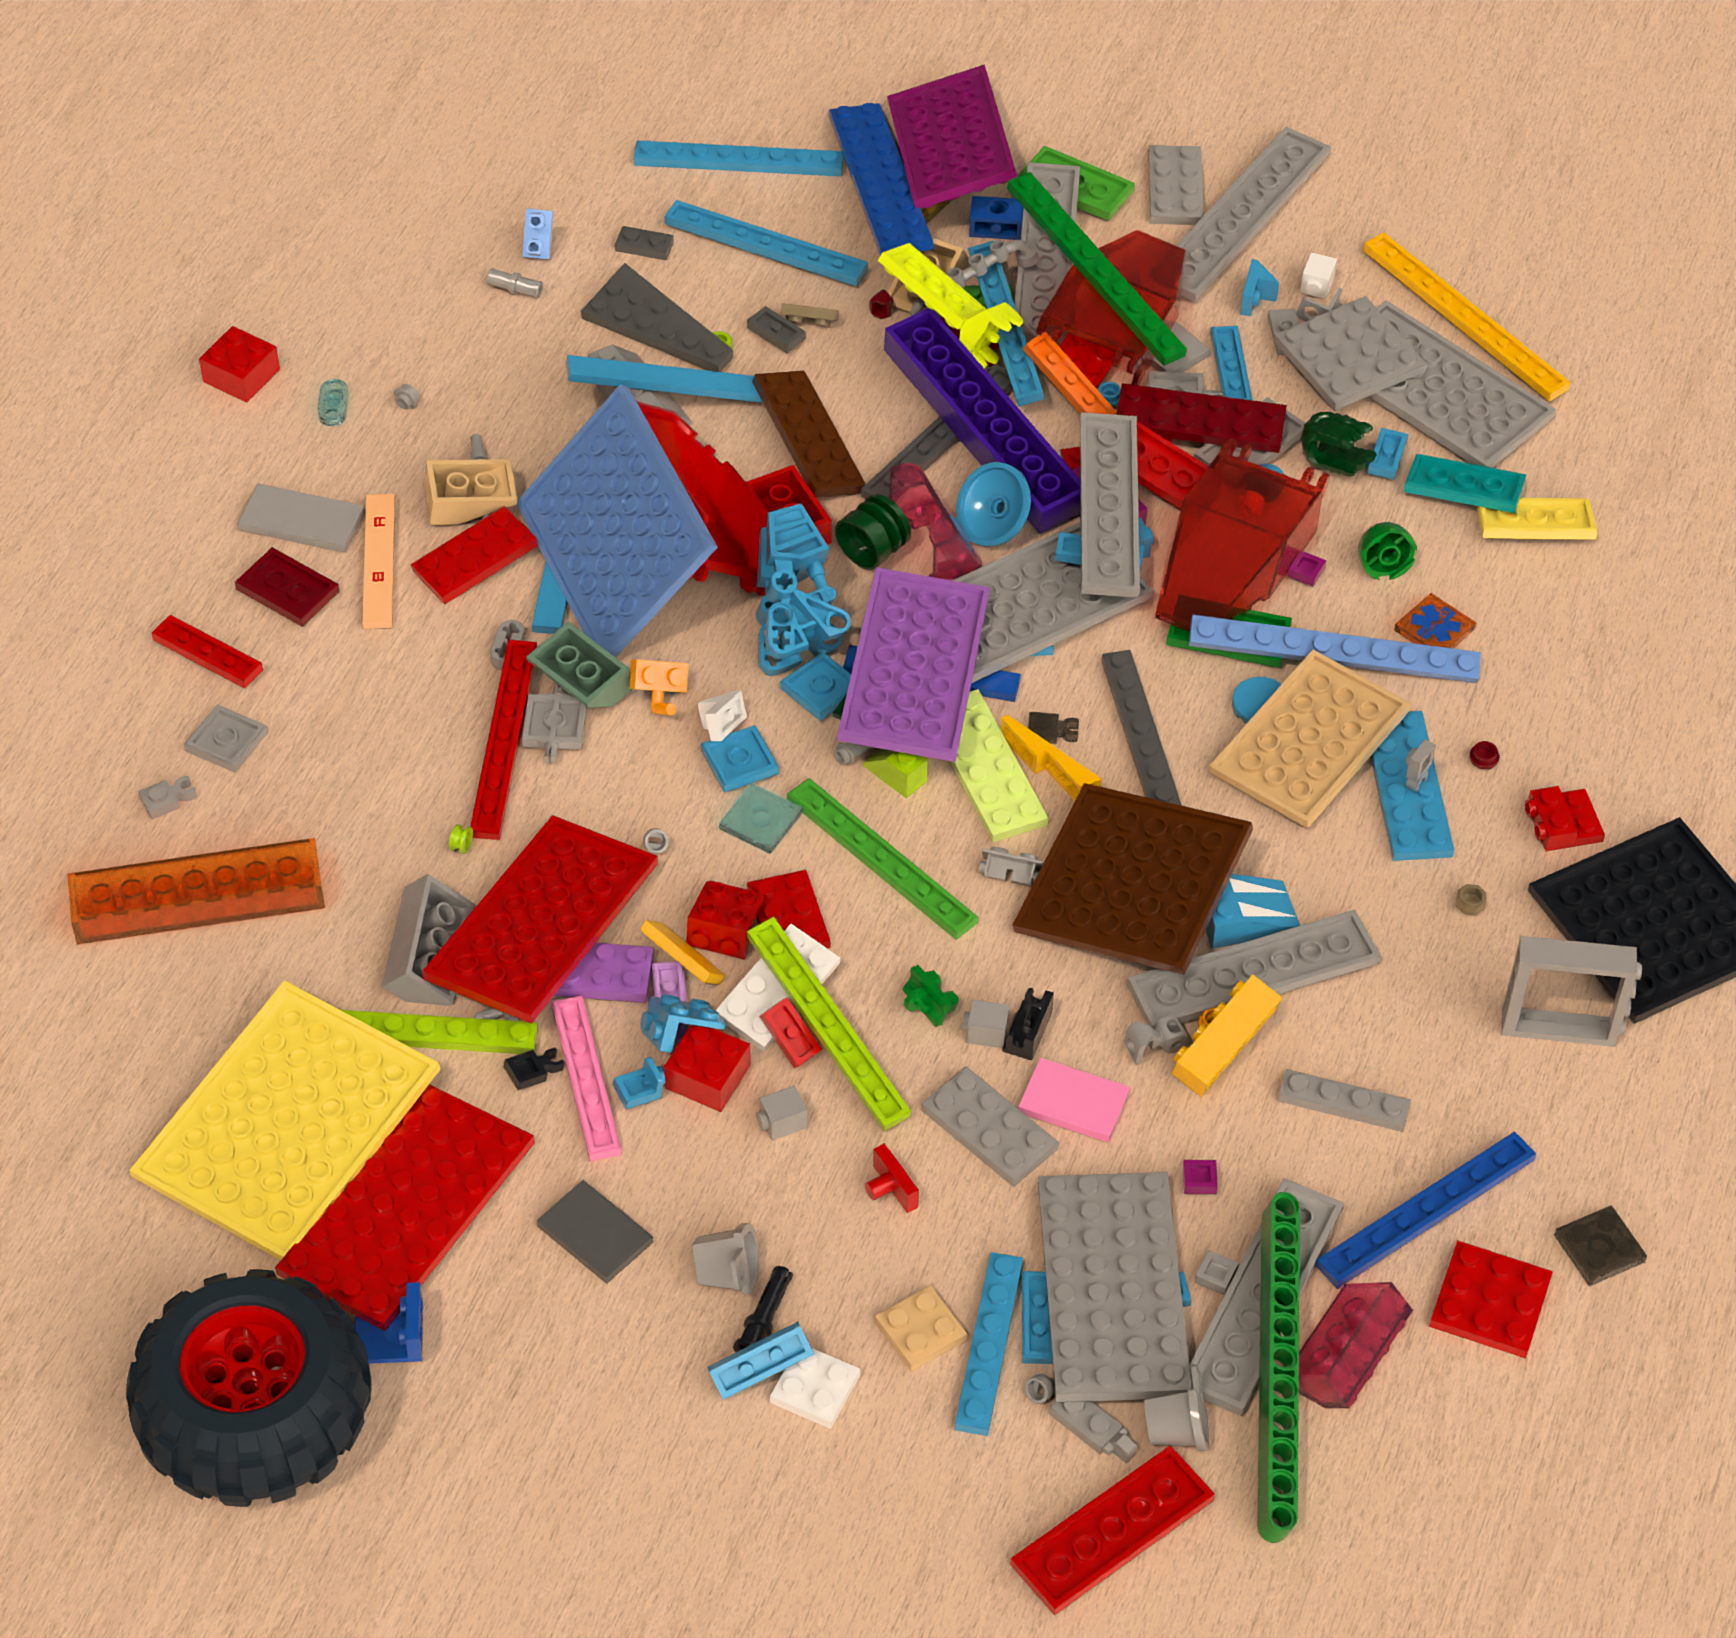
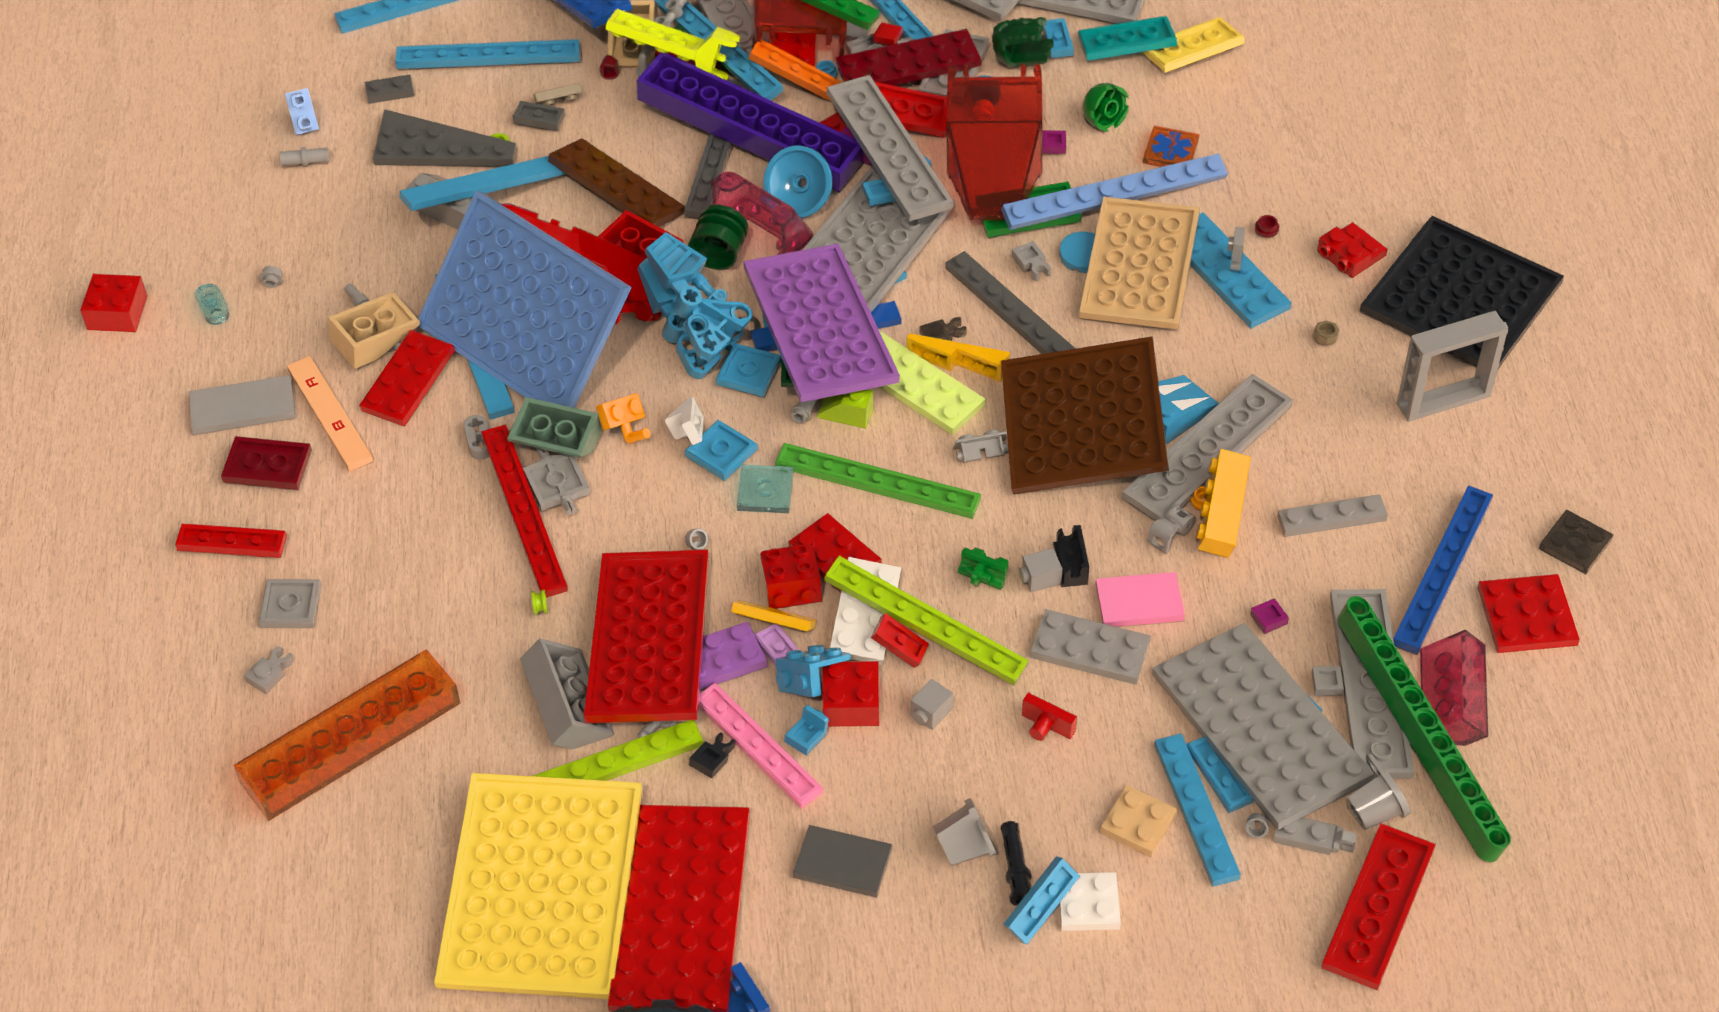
camera: 25 degrees left, 0 degrees up
(1197, 378) = (887, 34): none -> red tile
(1197, 687) = (1031, 257): none -> light grey plate

